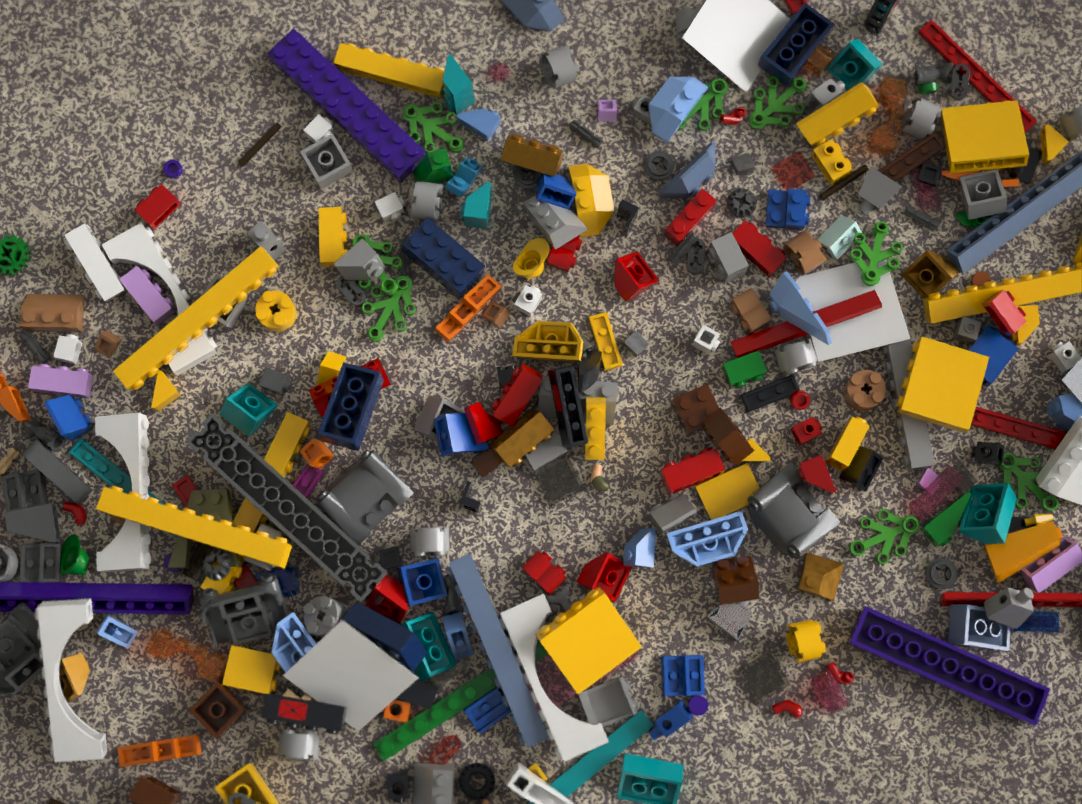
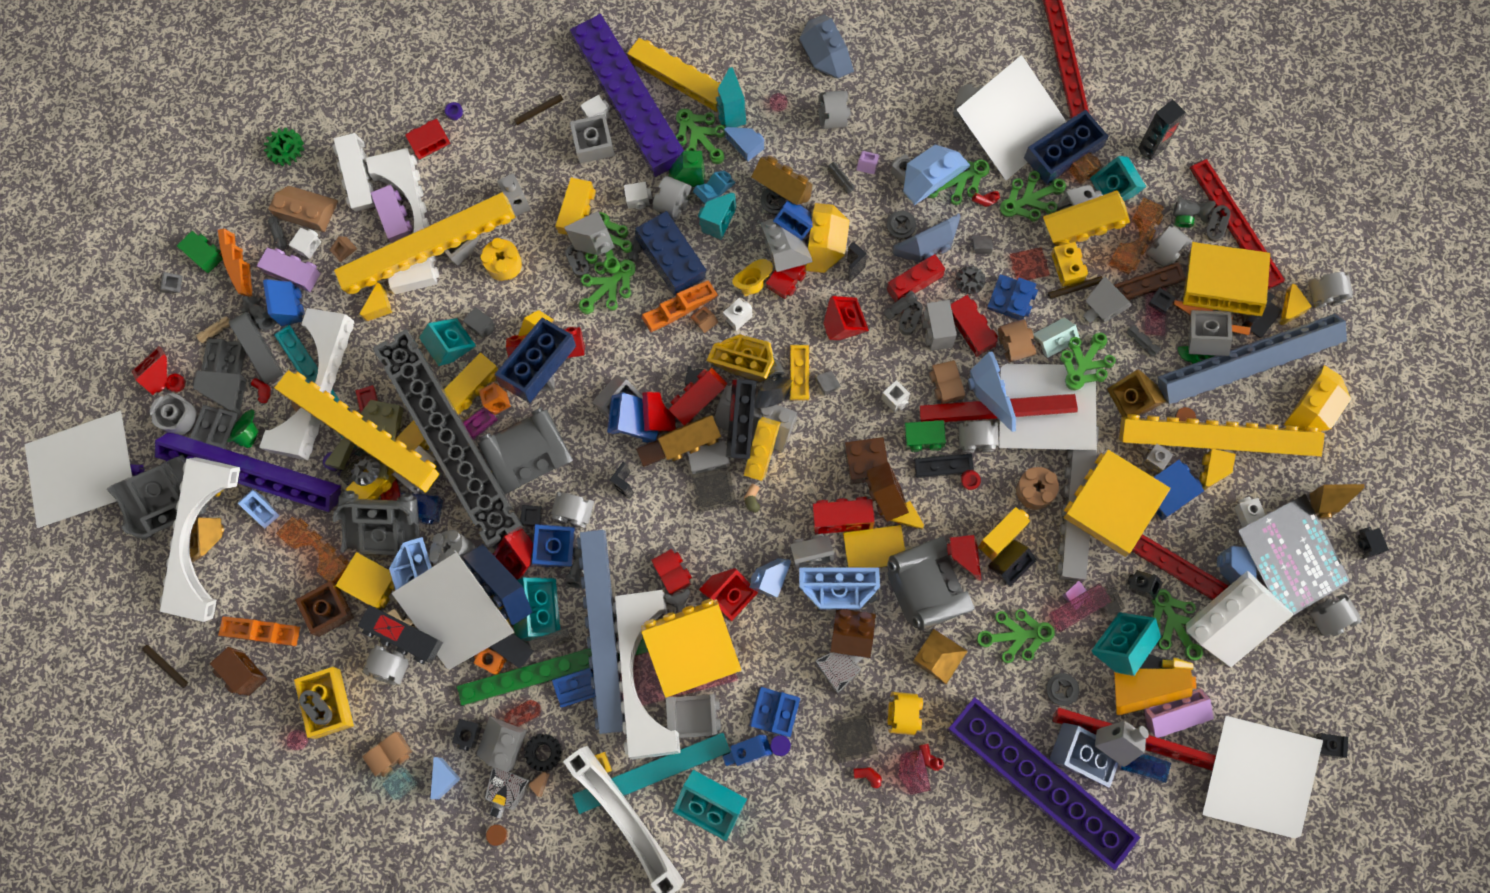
camera: 25 degrees right, 5 degrees down
(458, 635) = (570, 607): medium blue slope -> none
(806, 431) = (968, 511): red brick -> none
(945, 523) = (1079, 641): green slope -> none
(1005, 312) = (1199, 449): slope -> none

